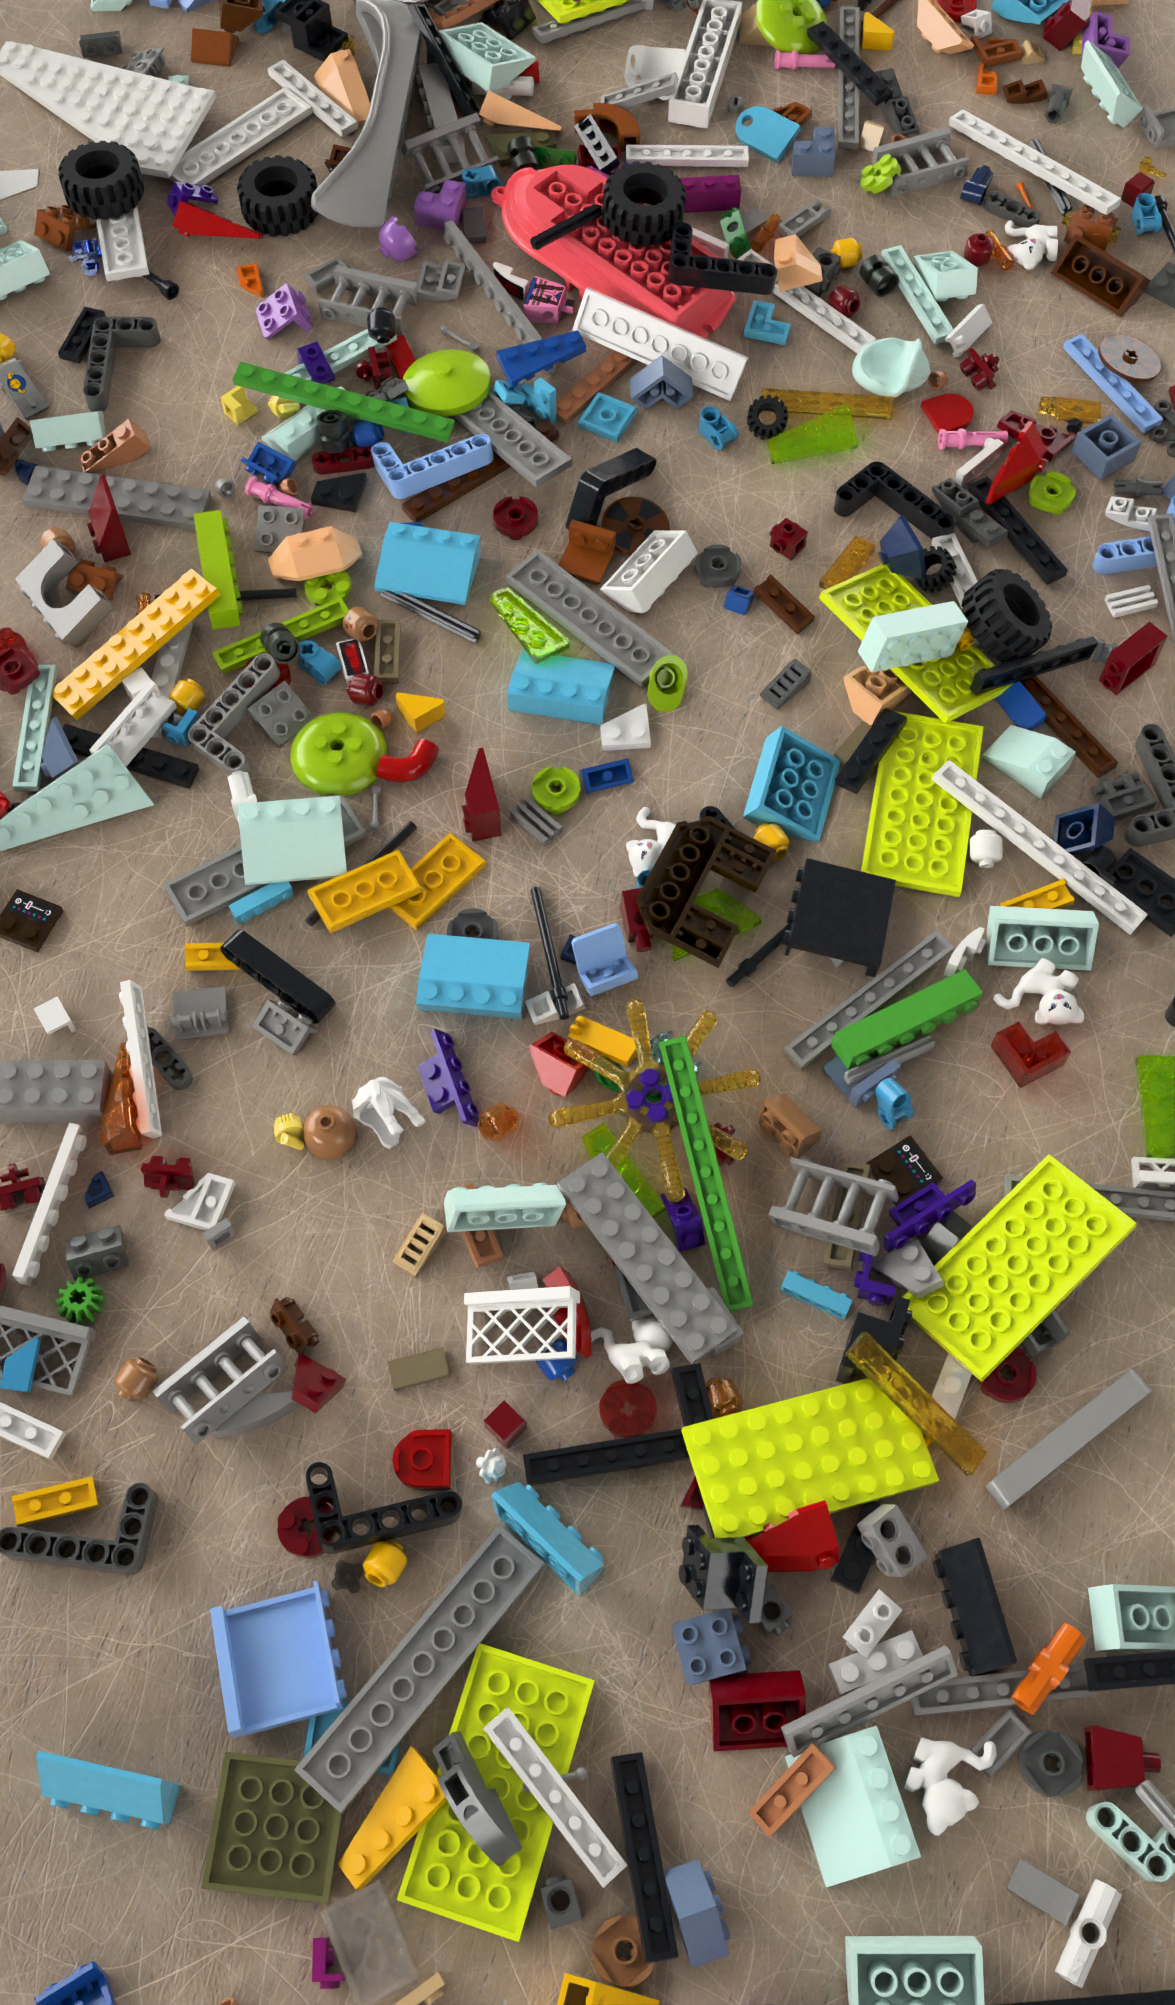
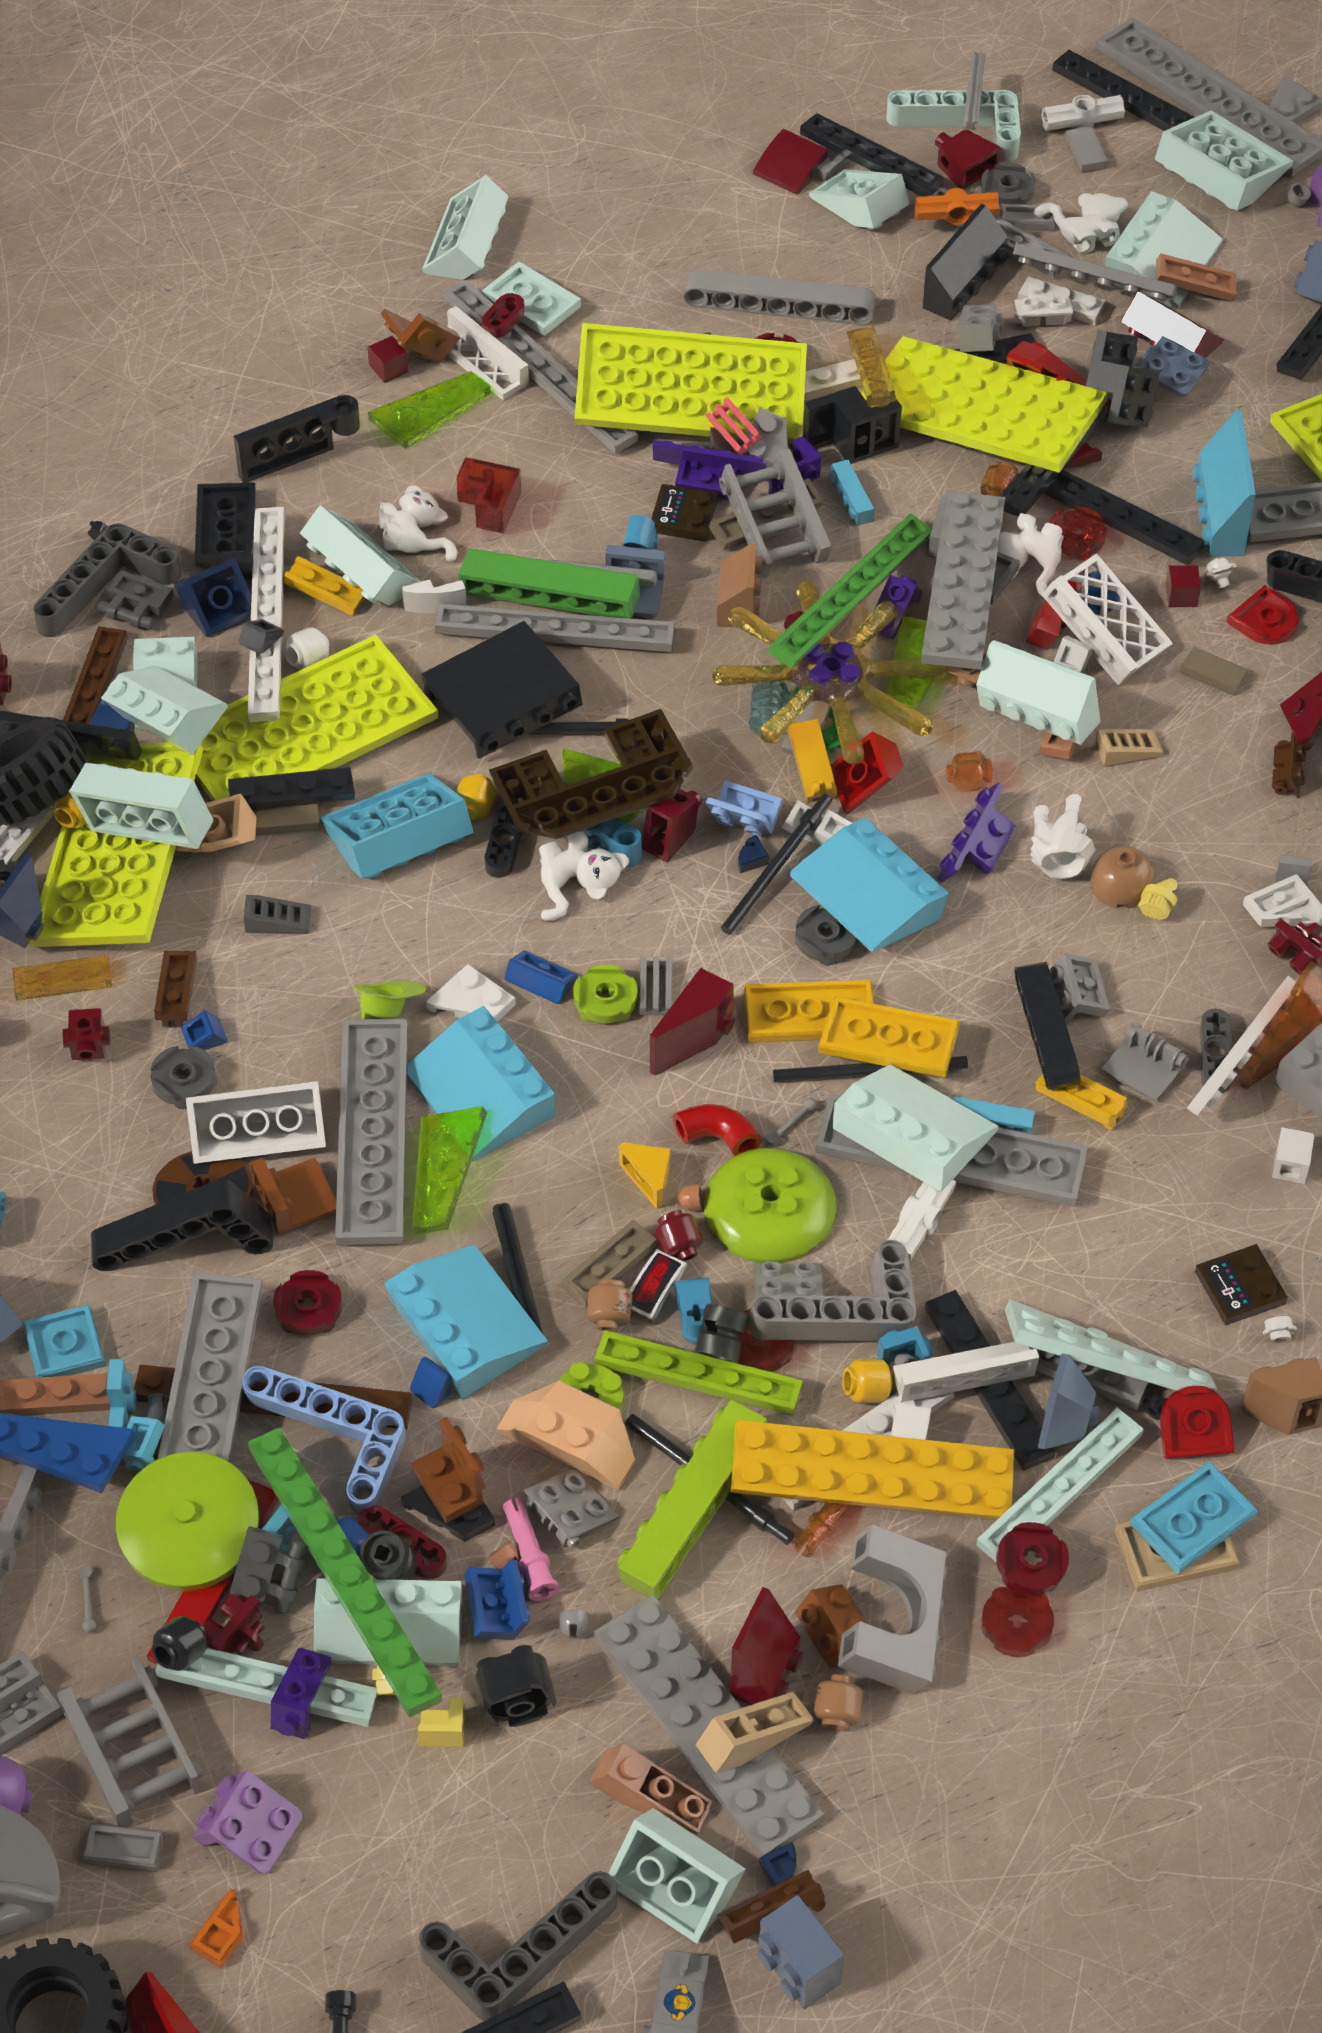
camera: 135 degrees left, 10 degrees down
(80, 490) = (752, 1730): none -> tan slope
(215, 430) = (515, 1687): none -> black brick
(343, 482) = (451, 1474): none -> dark orange bracket
(940, 1247) = (721, 412): none -> coral tile
(991, 711) = (165, 706): none -> light aqua slope
(1013, 817) = (259, 635): none -> black slope

